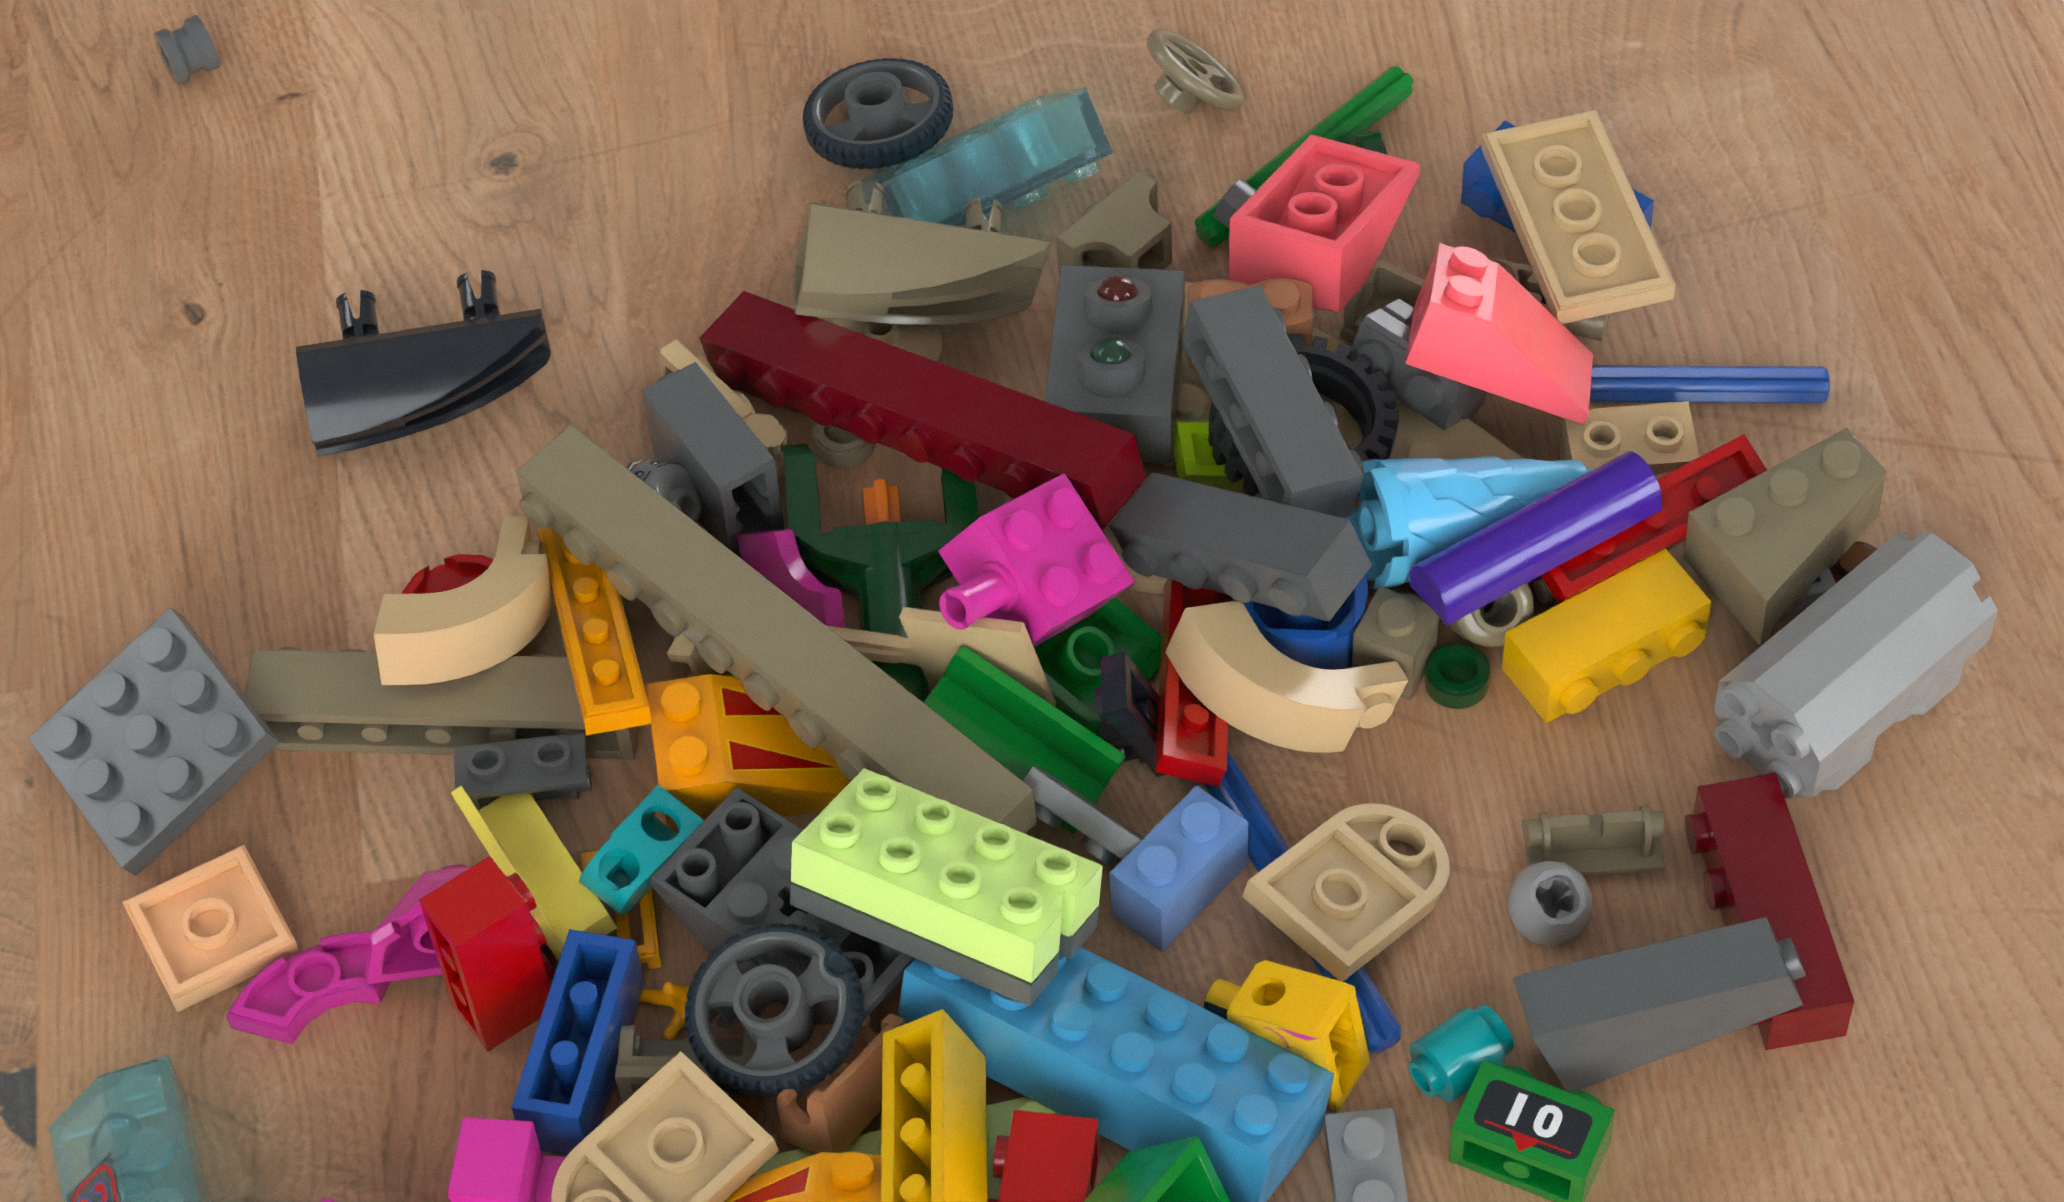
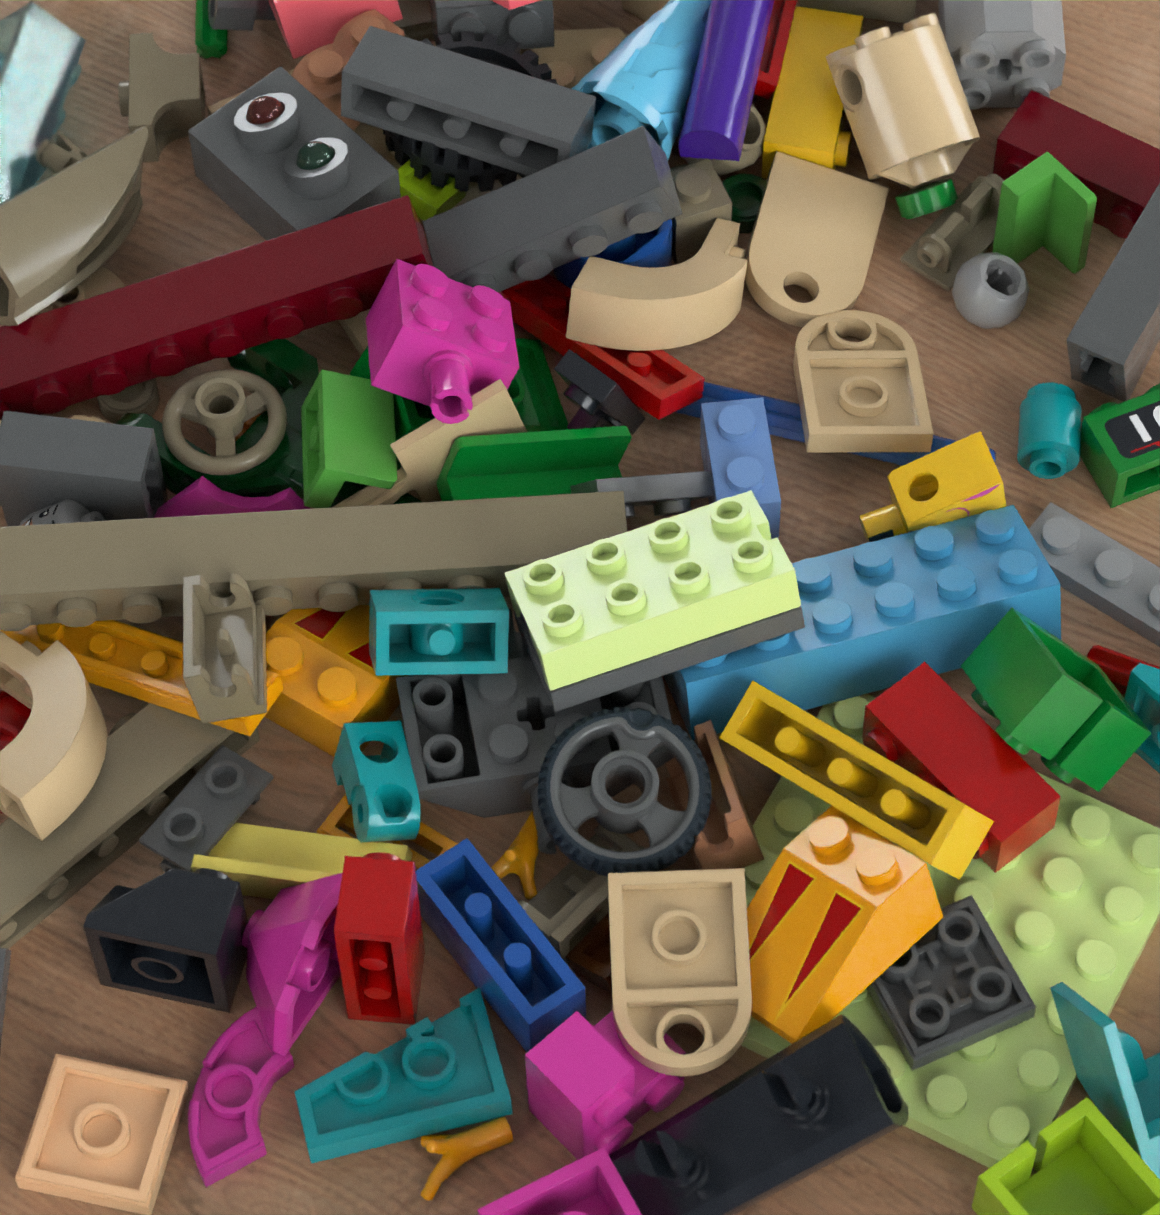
camera: 50 degrees left, 5 degrees up
(385, 823) = (172, 938): none -> black slope
(401, 1160) = (460, 1148): none -> light orange bar
(410, 1082) = (419, 1086): none -> teal wing
(623, 651) = (224, 650): none -> dark tan hinge
(777, 767) = (438, 631): none -> teal brick
(850, 497) = (221, 405): none -> dark tan piece
(904, 577) = (346, 437): none -> bright green panel
(1470, 744) = (812, 233): none -> tan tile
(1596, 791) = (927, 199): none -> green tile
(1643, 694) = (905, 103): none -> tan cylinder
(1649, 867) = (1045, 209): none -> bright green panel

